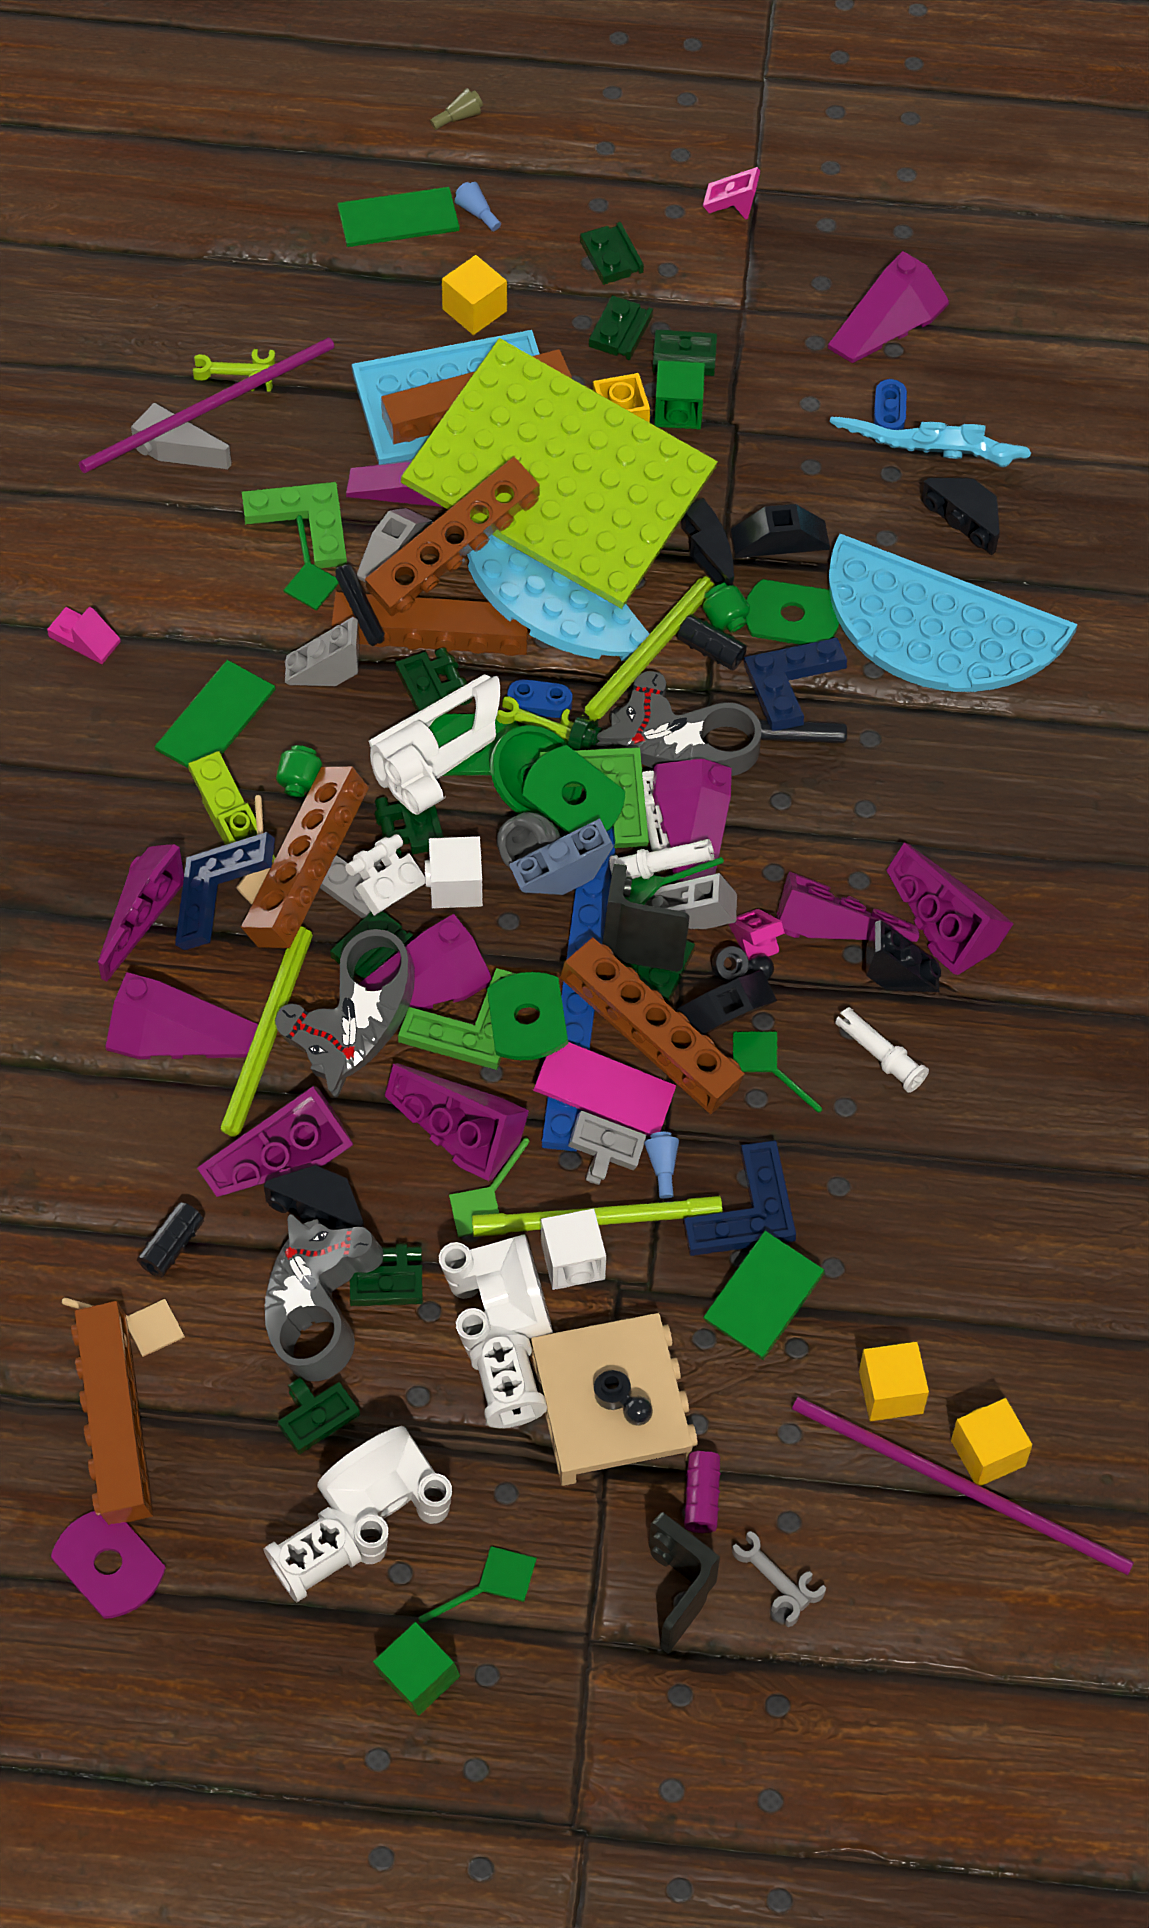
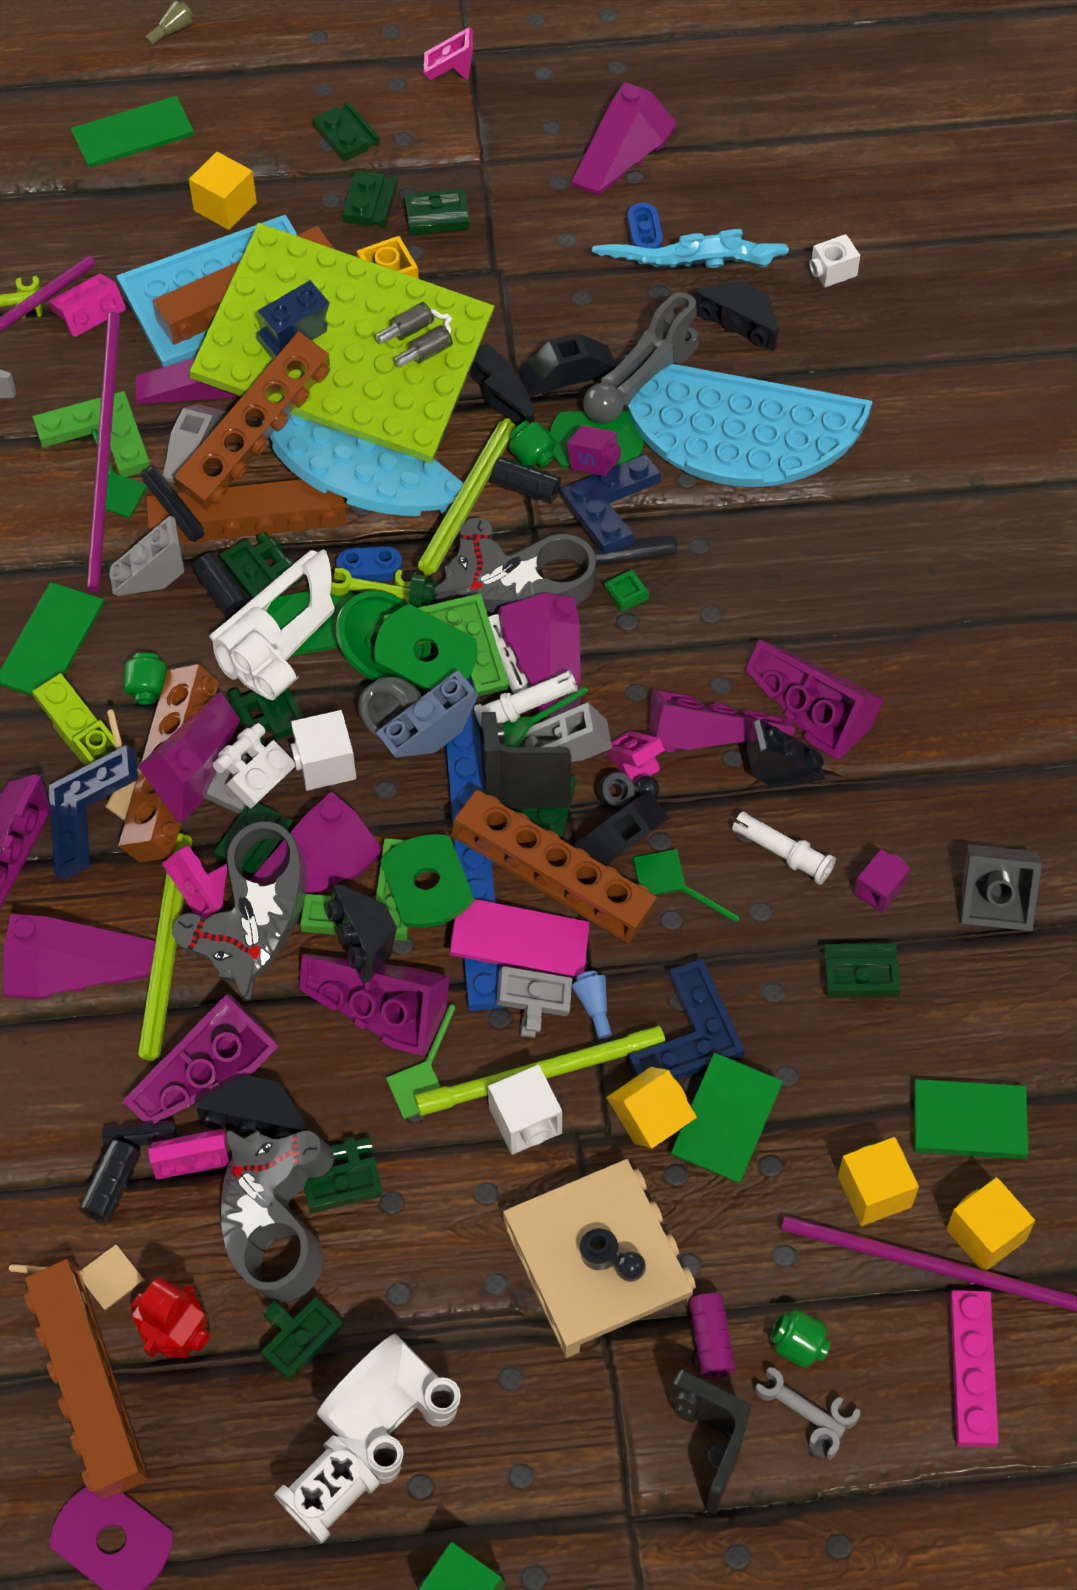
camera: 10 degrees left, 0 degrees up
(200, 1375) = (170, 1320): none -> red piece
(208, 1201) = (139, 1134): none -> black axle
(248, 1229) = (189, 1154): none -> dark pink bracket
(303, 540) = (103, 453): none -> magenta piece
(309, 983) = (201, 891): none -> dark pink slope
(318, 387) = (88, 304): none -> dark pink bracket
(318, 860) = (184, 762): none -> magenta wedge
(389, 691) = (219, 584): none -> black axle
(456, 1049) = (363, 929): none -> black slope
(472, 200) = (201, 103): medium blue cone -> none
(501, 1334) = (480, 1192): white piece -> none
(504, 1575) = (528, 1466): green piece -> none
(515, 436) = (296, 311): none -> dark blue hips
(637, 491) = (423, 346): none -> clear smoke piece
(679, 394) = (442, 250): green head -> none
(693, 1269) = (652, 1107): none -> yellow head
(784, 625) = (593, 450): none -> magenta brick
(785, 1510) = (800, 1338): none -> green head
(786, 770) = (626, 590): none -> green tile
(870, 534) = (658, 348): none -> dark grey piece
(928, 1181) = (861, 970): none -> dark green plate
(944, 1572) = (974, 1369): none -> dark pink plate
(969, 1099) = (882, 880): none -> magenta brick
(999, 1342) = (970, 1119): none -> green tile
(1075, 473) = (834, 260): none -> white brick
(1083, 1128) = (1000, 887): none -> dark grey slope

